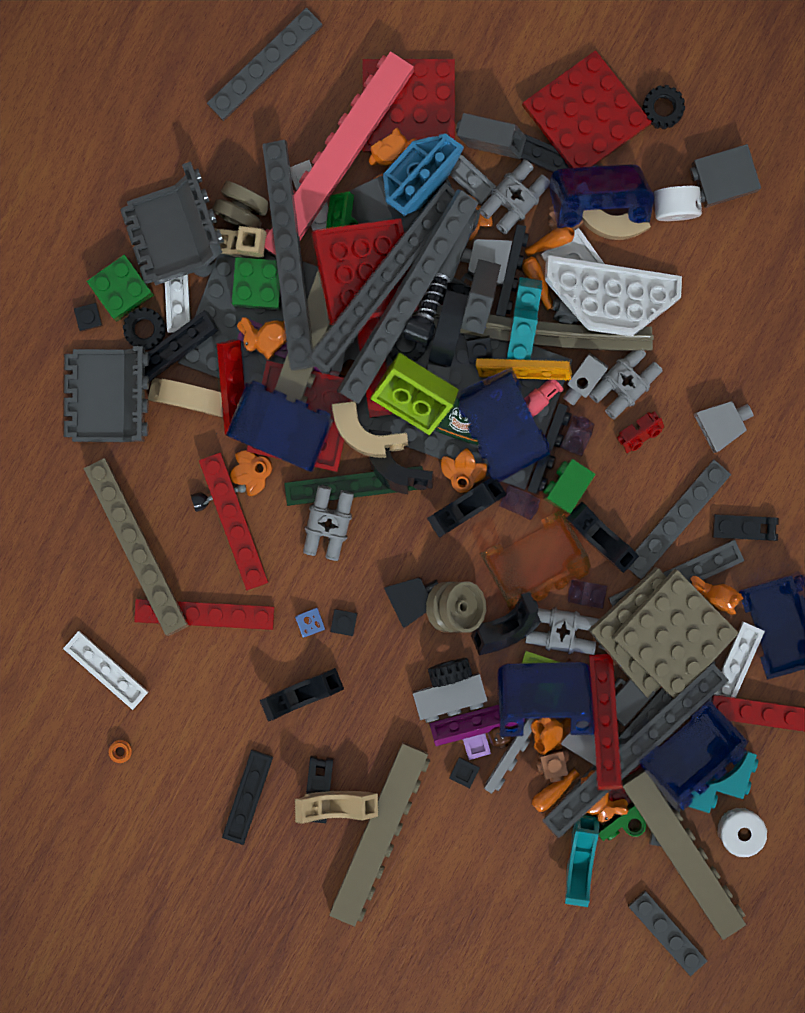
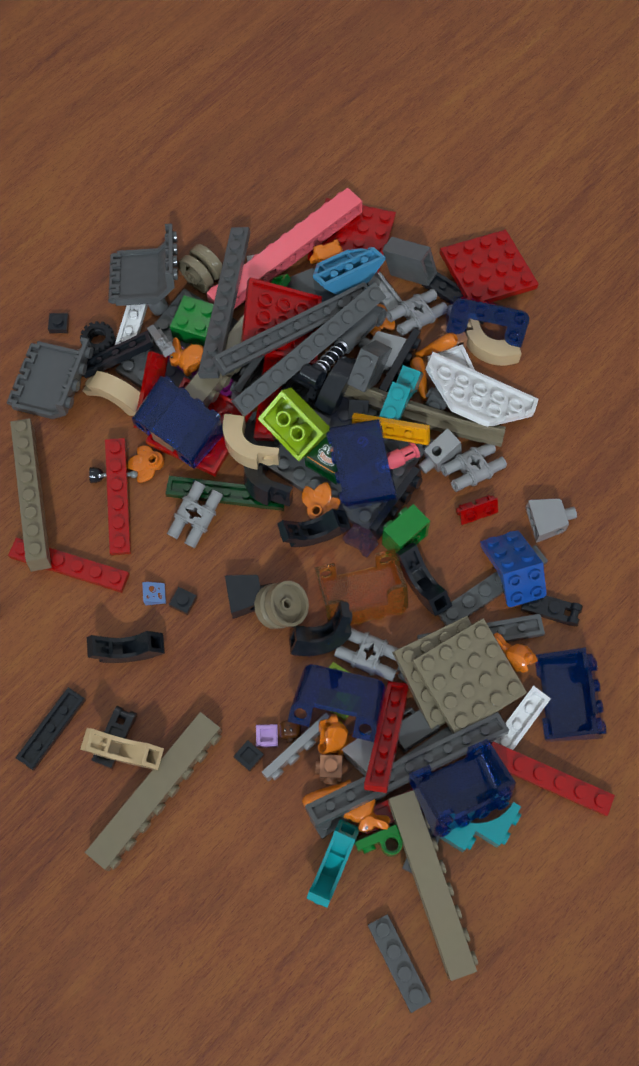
camera: 20 degrees right, 20 degrees down
(120, 288) = (89, 304): green brick -> none
(229, 327) = (161, 341): none -> light grey hinge
(243, 243) = (195, 283): tan arch -> none
(265, 64) = (251, 187): dark grey plate -> none
(450, 672) = (260, 661): black tyre -> none
(450, 698) = (254, 685): light grey brick -> none
(466, 725) = (264, 713): magenta plate -> none
(578, 435) = (423, 497): clear purple bracket -> none
(587, 594) = (400, 628): clear purple bracket -> none
(670, 94) = (554, 269): black tyre -> none
(677, 203) = (545, 338): white piece -> none
(697, 493) = (517, 567): none -> blue bracket
(725, 176) = (589, 335): dark grey brick -> none
(732, 822) = (482, 889): white piece -> none

